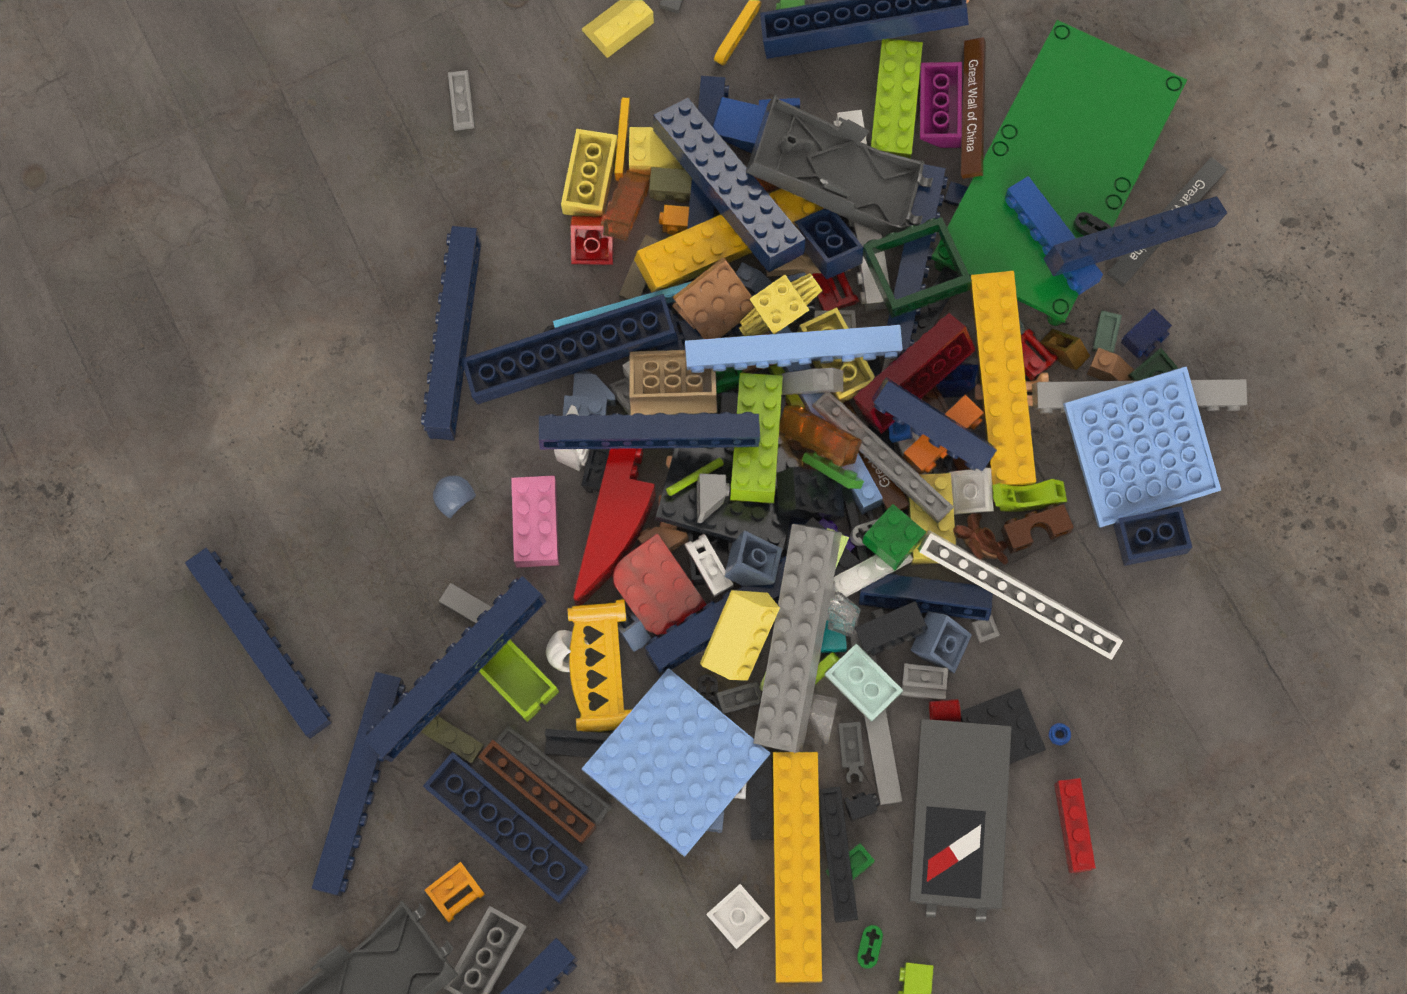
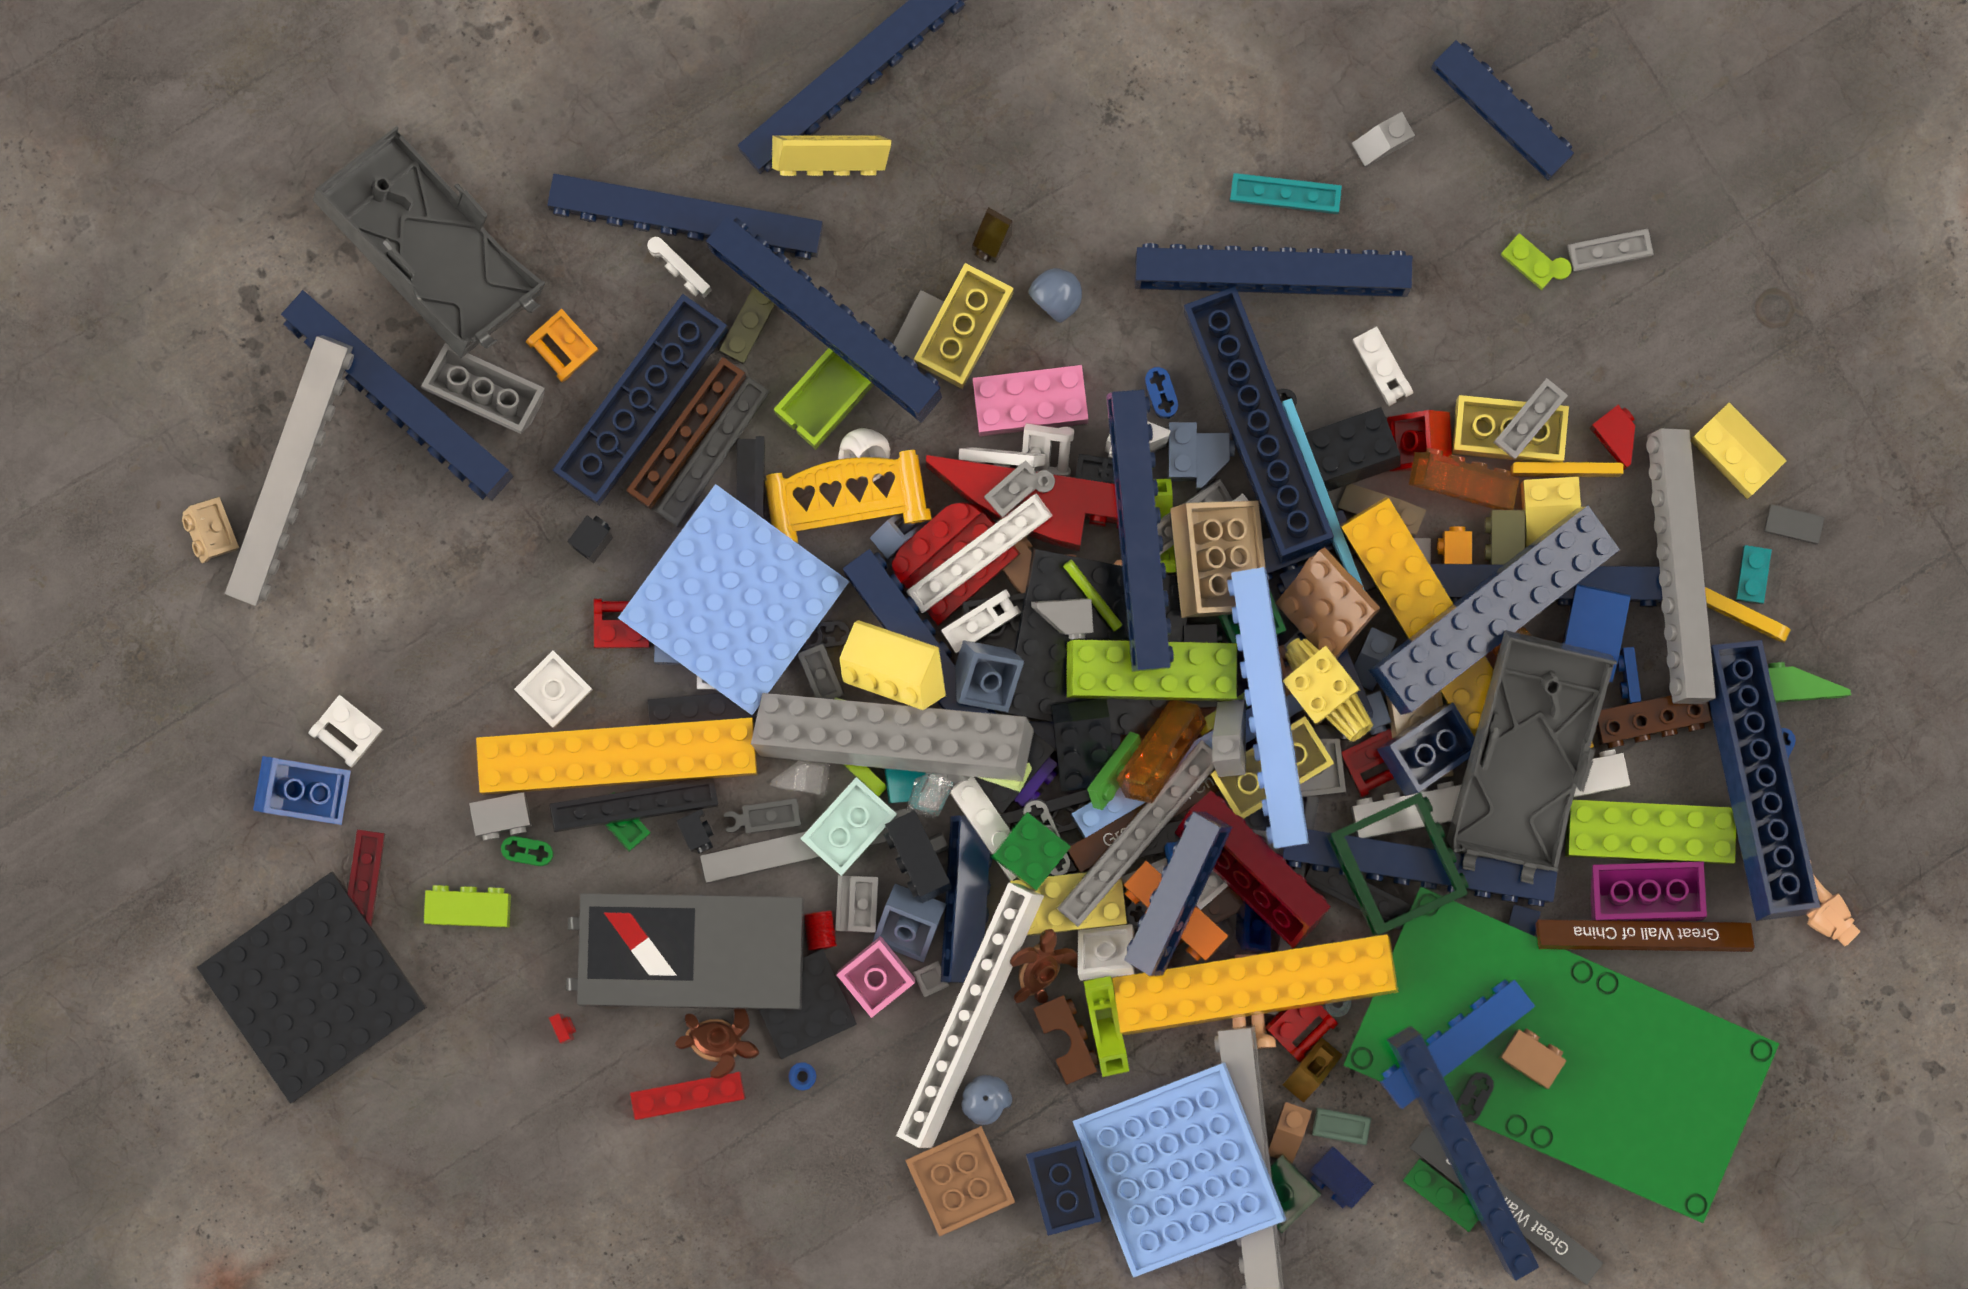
camera: 85 degrees right, 10 degrees up
(321, 660) = (829, 153): none -> light yellow slope
(347, 164) = (1502, 110): none -> dark blue brick
(359, 248) = (1384, 139): none -> light grey slope
(392, 323) = (1285, 193): none -> teal plate
(399, 791) = (678, 266): none -> white plate
(401, 538) = (992, 236): none -> dark brown slope
(465, 152) = (1534, 263): none -> lime hinge
(469, 566) = (963, 325): none -> light yellow brick
(532, 263) = (1382, 365): none -> white plate
(532, 420) = (1168, 391): none -> blue beam
(574, 516) = (1039, 440): none -> white plate
(579, 543) = (1001, 457): none -> white plate
(584, 153) = (1530, 419): none -> light grey plate
(593, 280) = (1354, 449): none -> black brick
(599, 103) = (1616, 434): none -> red slope
(605, 526) = (1017, 487): none -> light grey hinge
(617, 875) = (591, 538): none -> black brick
(654, 562) = (979, 553): none -> white tile
(695, 862) = (614, 632): none -> red plate
(702, 61) = (1680, 566): none -> light grey brick
(709, 21) = (1753, 574): none -> teal plate
(811, 85) = (1648, 718): none -> reddish brown brick
(840, 966) = (500, 815): none -> light grey brick
(984, 669) = (876, 976): none -> bright pink brick
(1018, 922) = (563, 1027): none -> red plate
(1031, 798) = (719, 1041): none -> copper animal
(1065, 183) = (1533, 1058): none -> medium nougat brick
(1082, 598) = (988, 1111): none -> sand blue piece
(1145, 616) = (960, 1181): none -> medium nougat plate
(1159, 265) = (1441, 1194): none -> green plate

